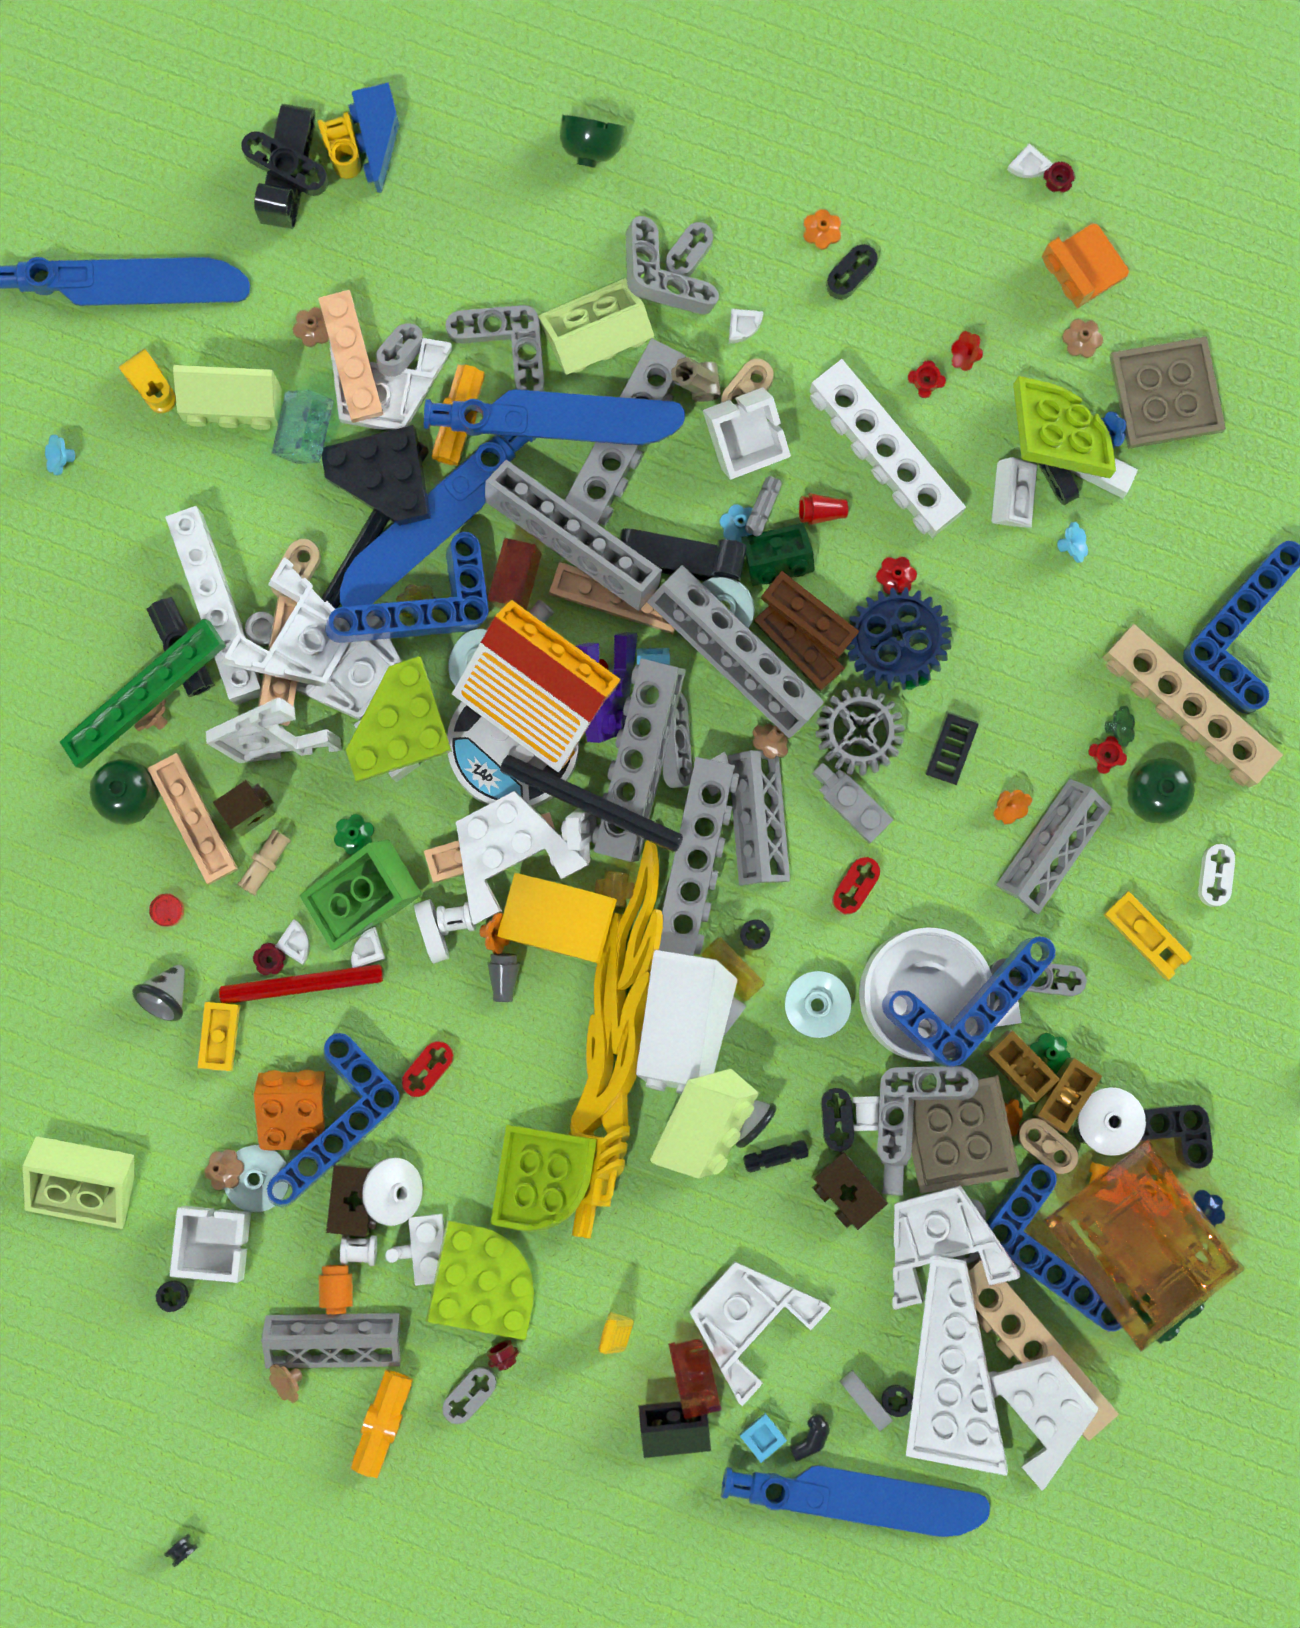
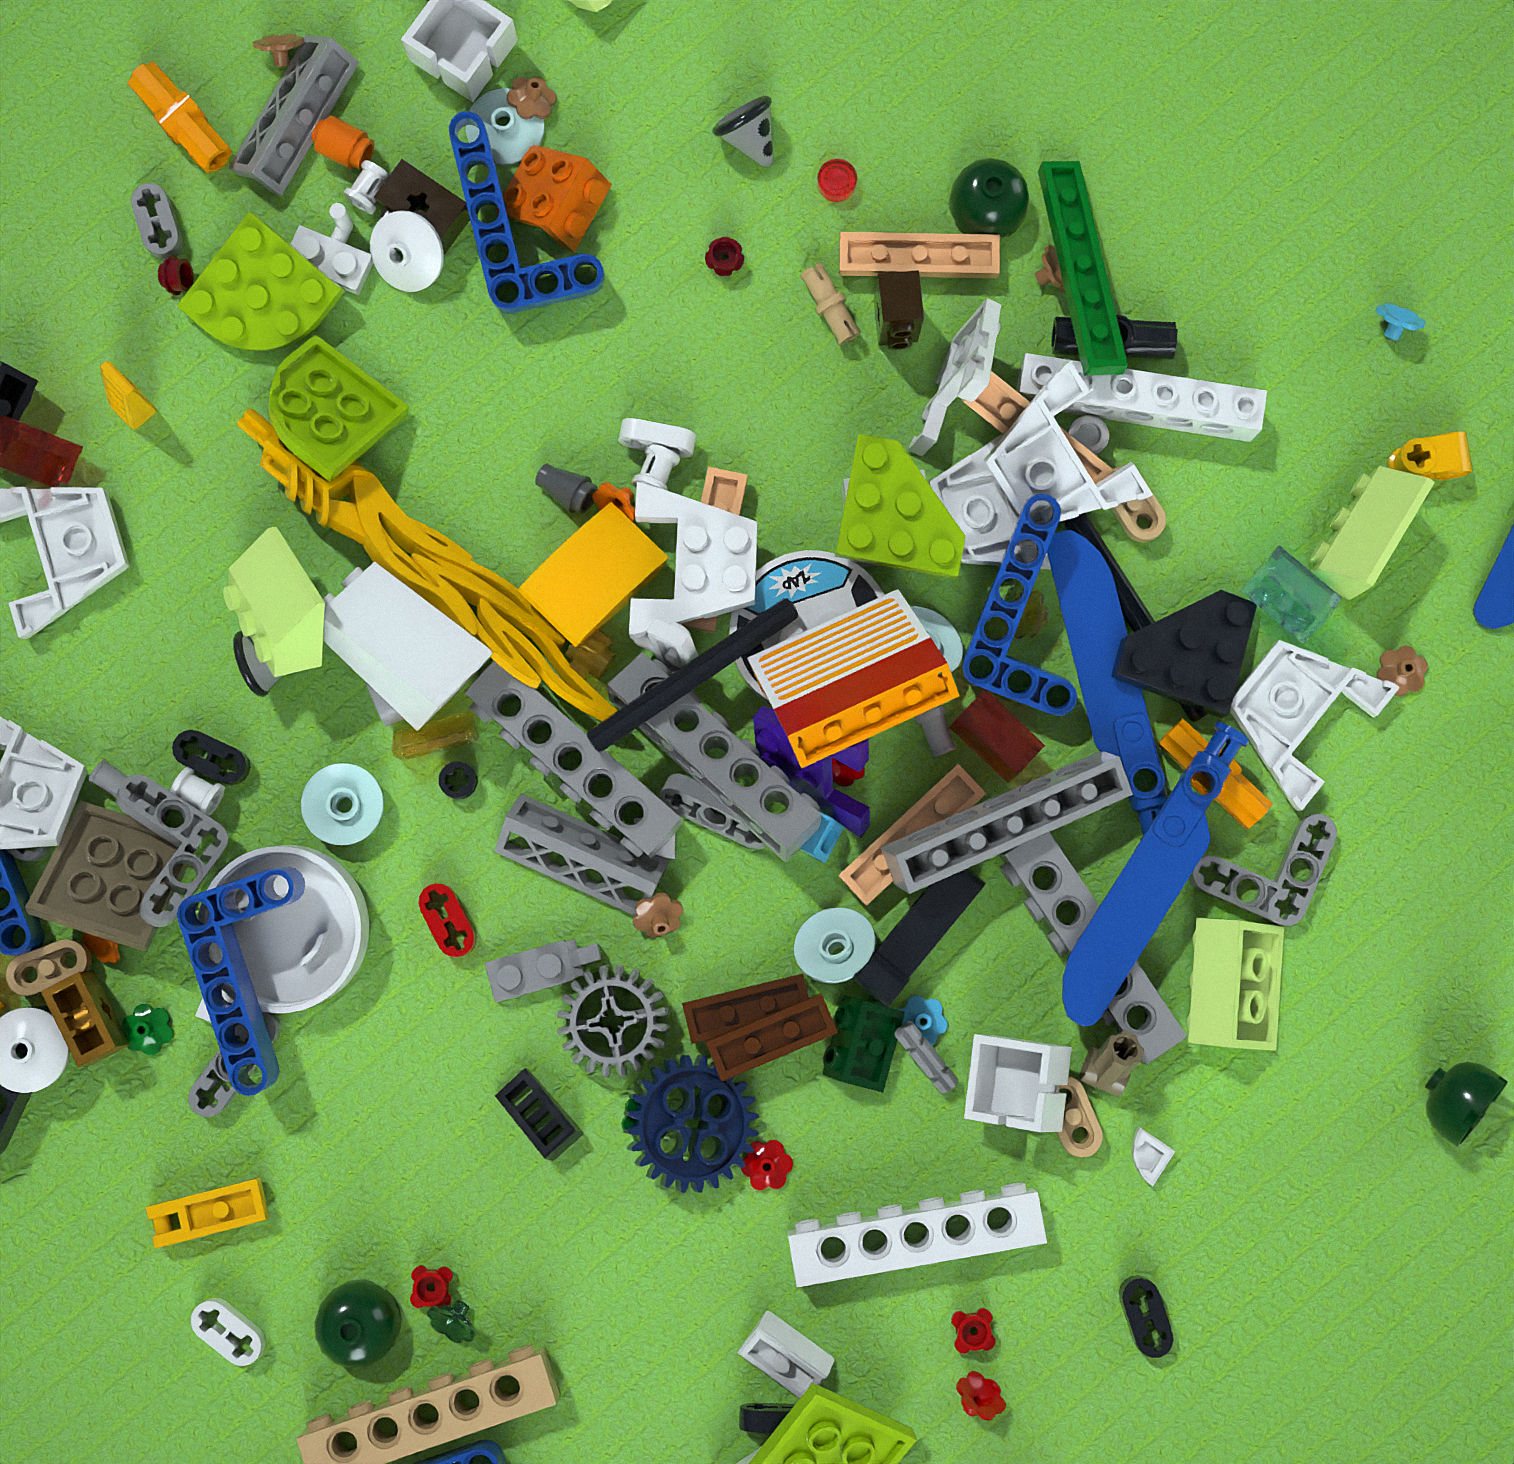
camera: 120 degrees right, 0 degrees up
(218, 1036) = (672, 162): yellow plate -> none
(295, 942) = (727, 293): white tile -> none
(301, 984) = (679, 276): red axle -> none
(351, 356) = (1345, 689): light nougat plate -> none
(360, 893) = (739, 386): bright green slope -> none
(362, 836) = (809, 424): green plant -> none
(367, 949) = (677, 363): white tile -> none
(394, 346) = (1328, 745): light grey beam -> none
(422, 1063) = (522, 355): red beam -> none
(683, 247) = (1261, 1146): light grey beam -> none
(694, 293) = (1253, 1082): light grey beam -> none
(735, 651) = (775, 929): light grey brick -> none
(775, 1156) = (211, 670): black axle -> none
(819, 234) = (1206, 1307): orange plant -> none
(820, 509) = (888, 1120): red cone -> none
(866, 1199) = (151, 727): dark brown brick -> none
(1012, 806) = (435, 1143): orange plant -> none
(1021, 1066) = (145, 986): pearl gold brick -> none
(1051, 841) = (370, 1164): light grey fence -> none
(1074, 542) = (690, 1391): medium azure plant -> none

